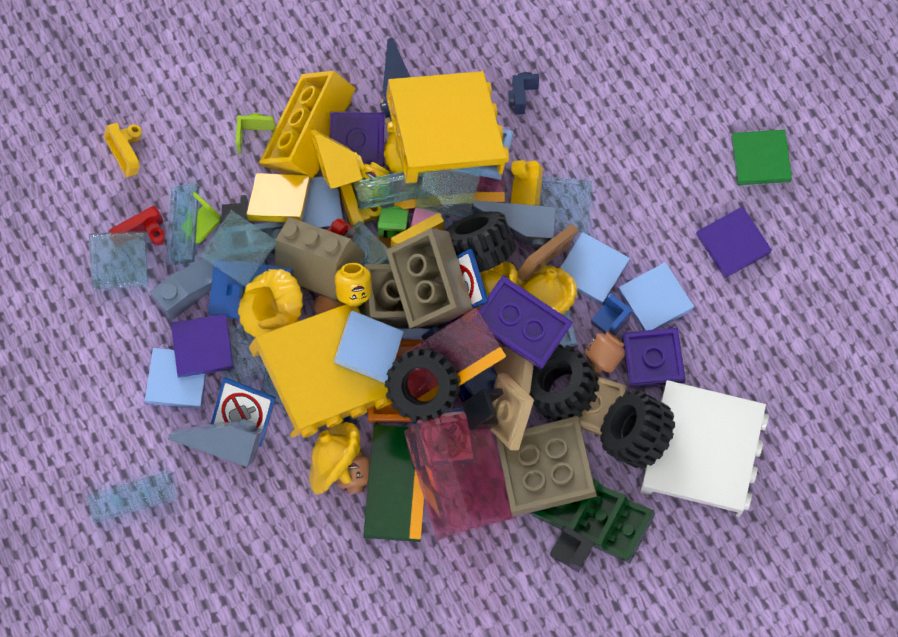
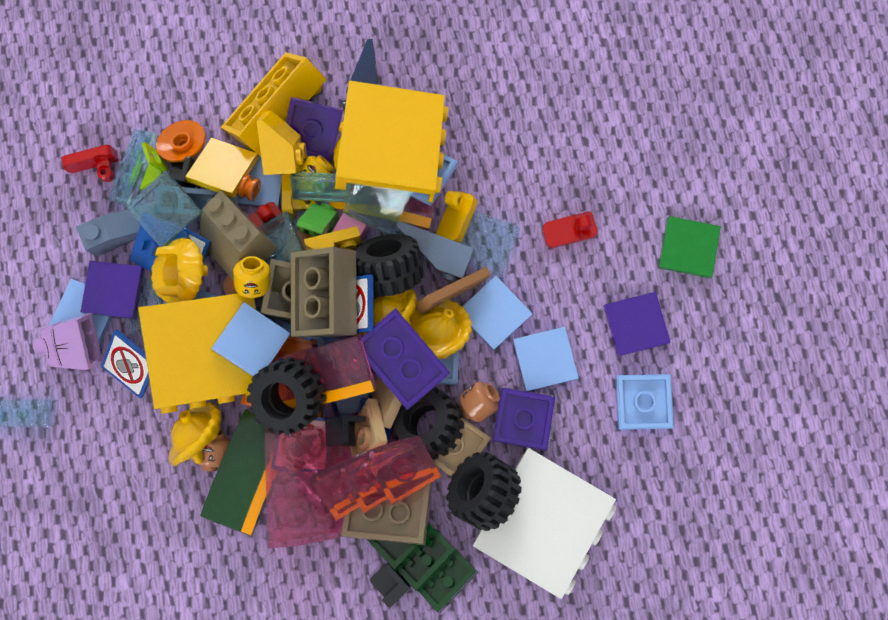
camera: 25 degrees right, 10 degrees up
(118, 260) = (63, 187): clear light blue tile -> none
(119, 141) = (101, 71): yellow piece -> none
(176, 407) = (70, 343): none -> lavender torso
(225, 184) = (181, 140): none -> orange dish
(228, 440) = (104, 386): sand blue slope -> none
(252, 122) = (214, 86): lime bracket -> none
(312, 210) = (249, 187): none -> orange bush
(520, 83) = (481, 113): dark blue bracket -> none
(531, 440) = (375, 476): none -> clear pink slope
(612, 315) = (496, 367): blue panel -> none
(640, 171) = (569, 230): none -> red piece
(764, 312) = (644, 401): none -> light blue tile

